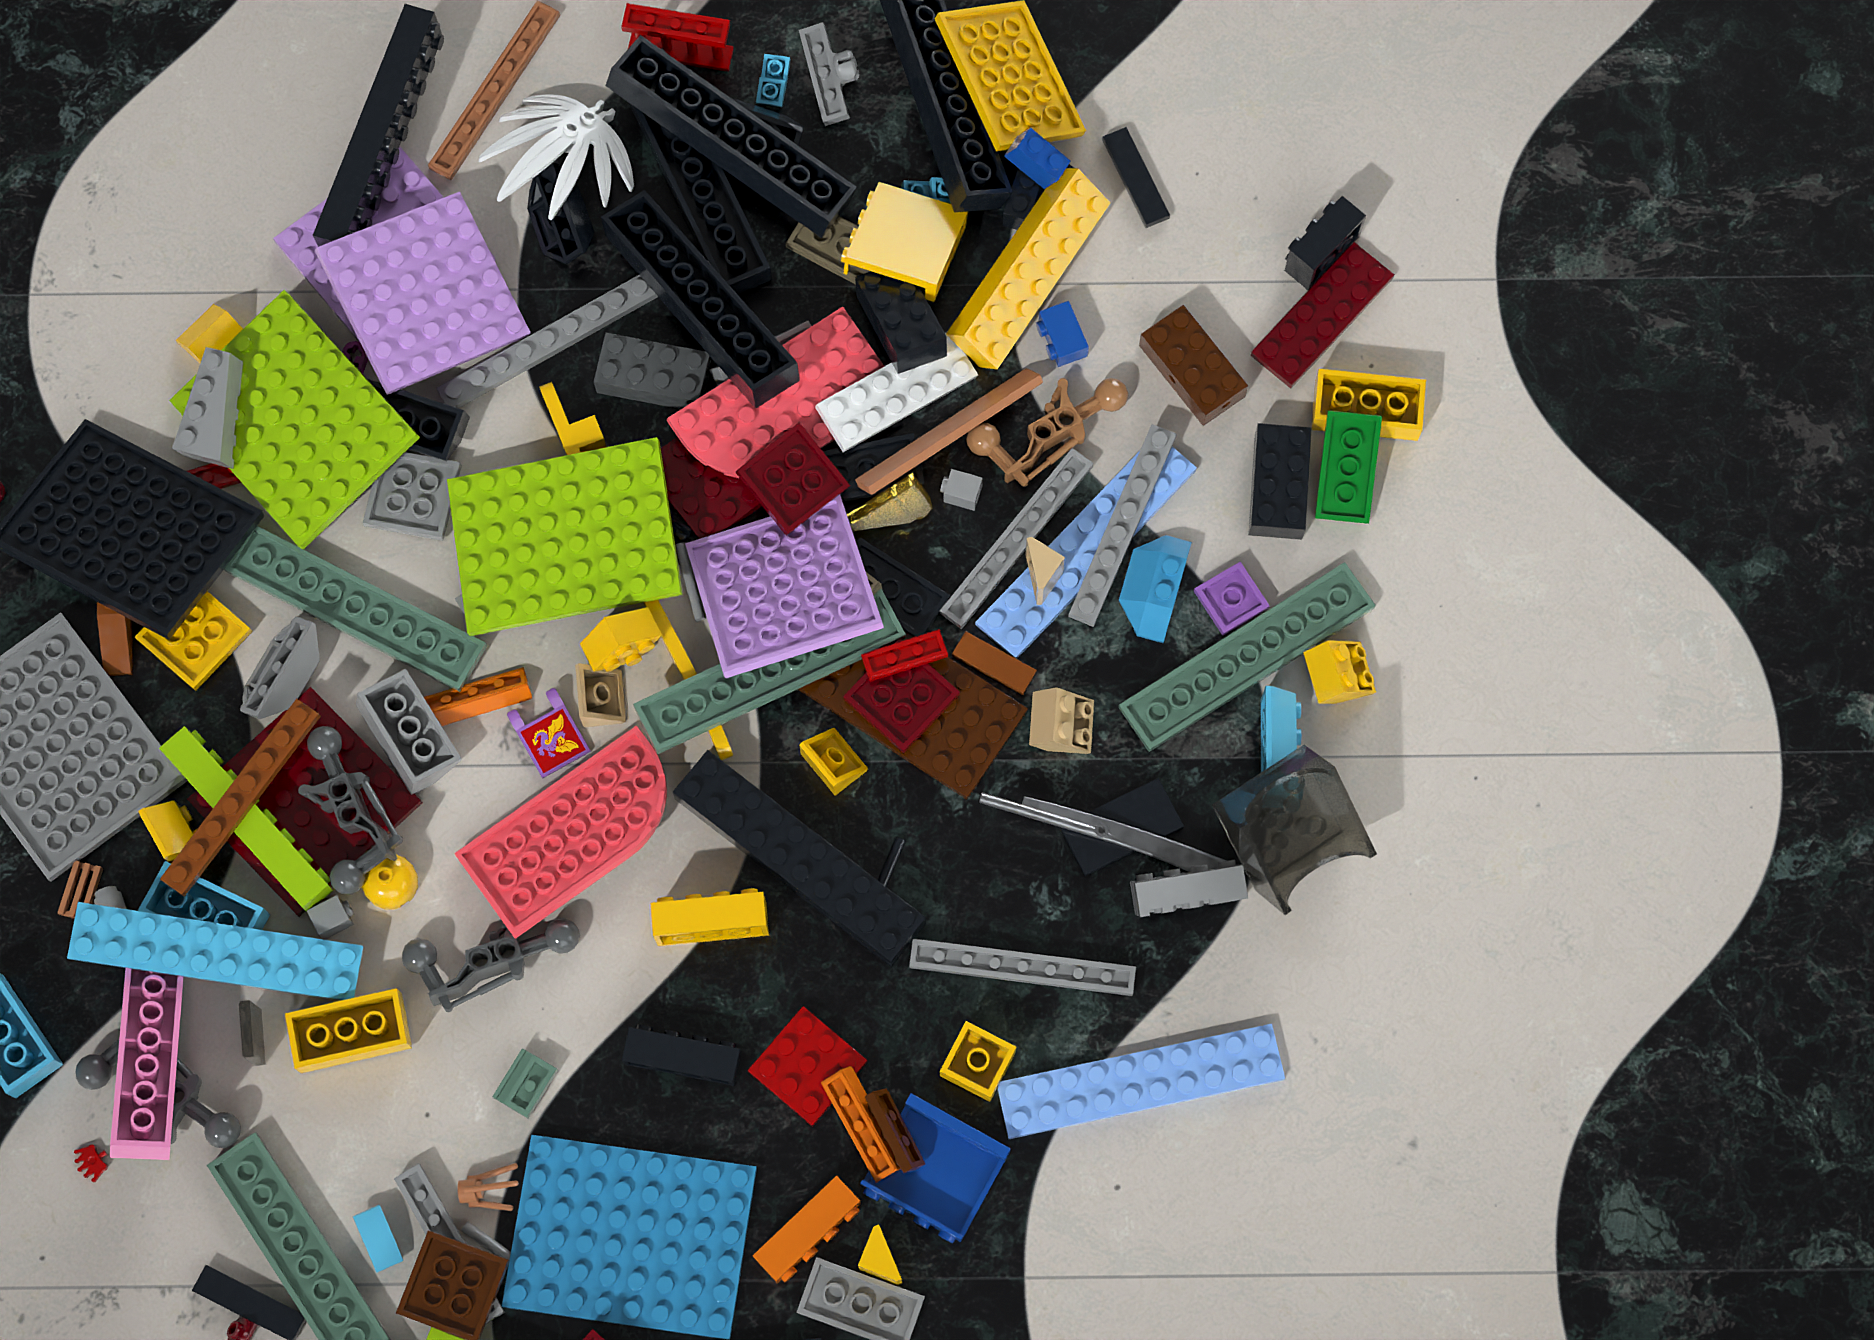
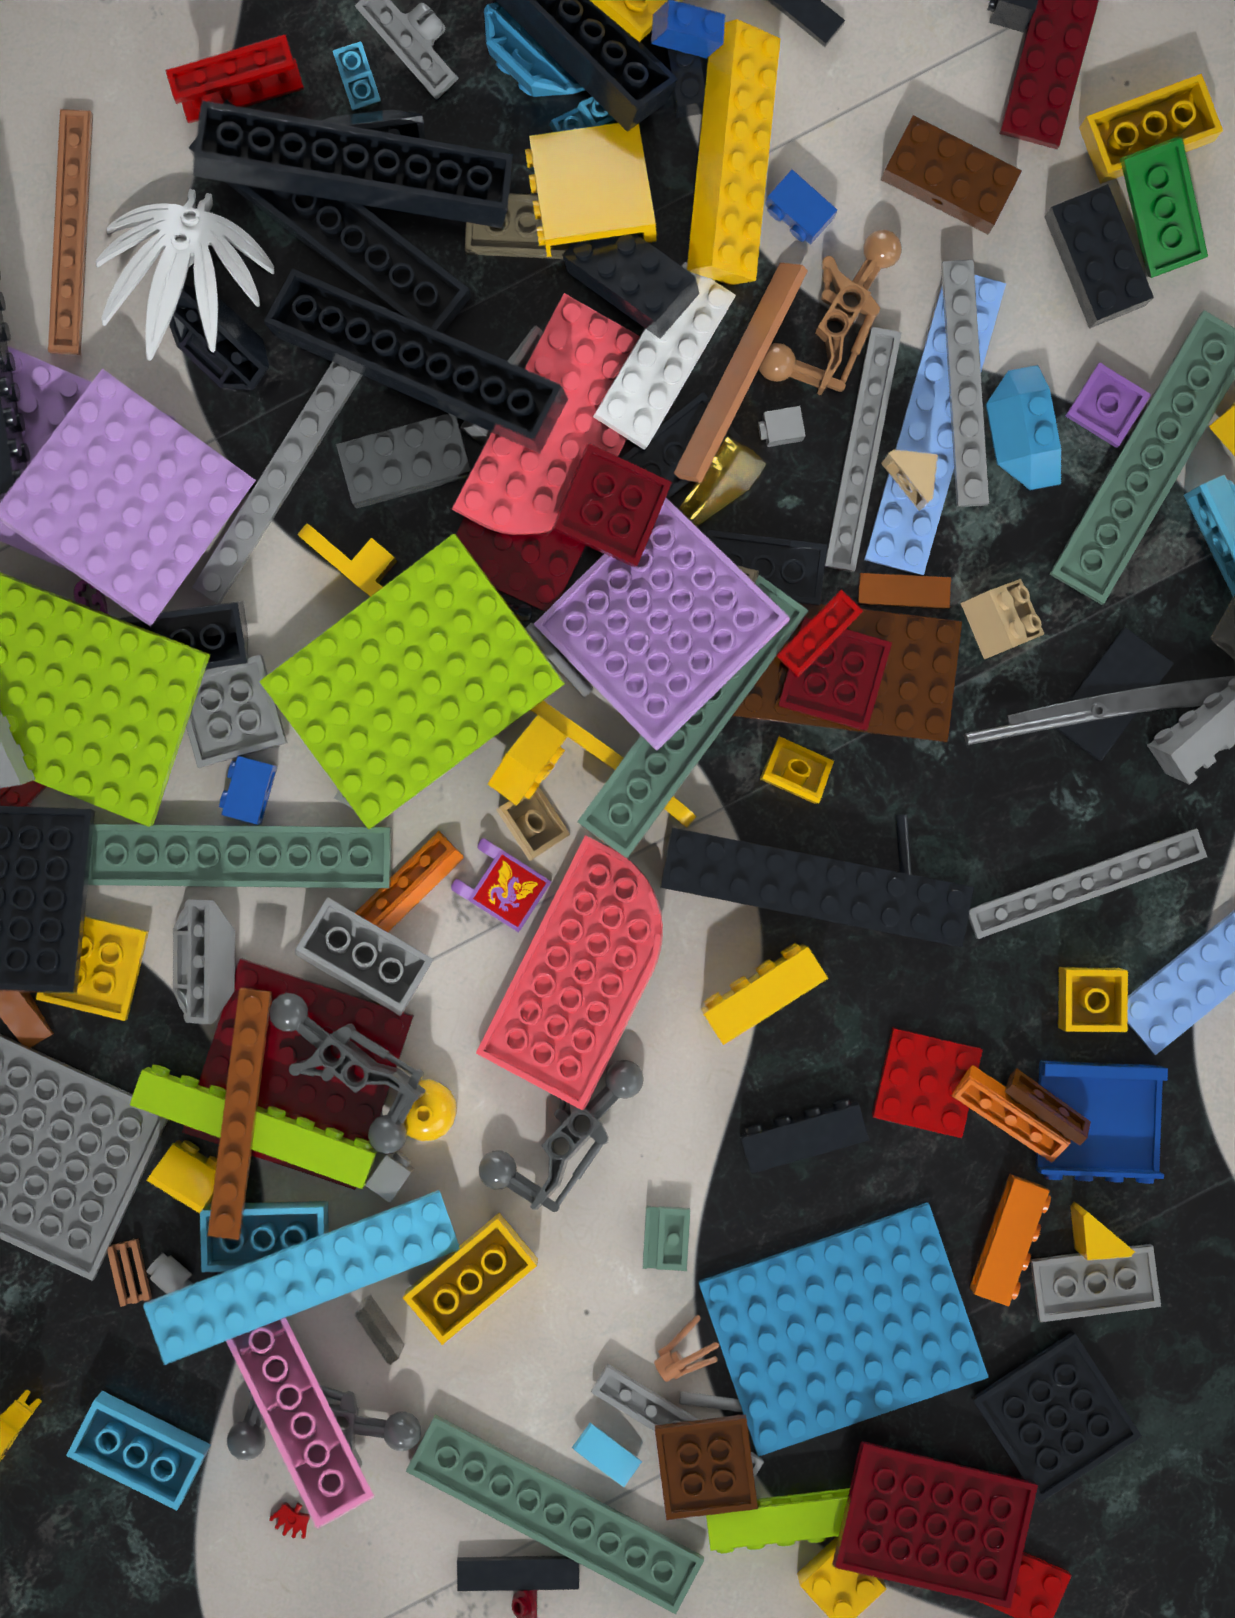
camera: 25 degrees left, 15 degrees up
(392, 559) = (248, 790): none -> blue brick
(905, 123) = (524, 57): none -> dark azure wedge

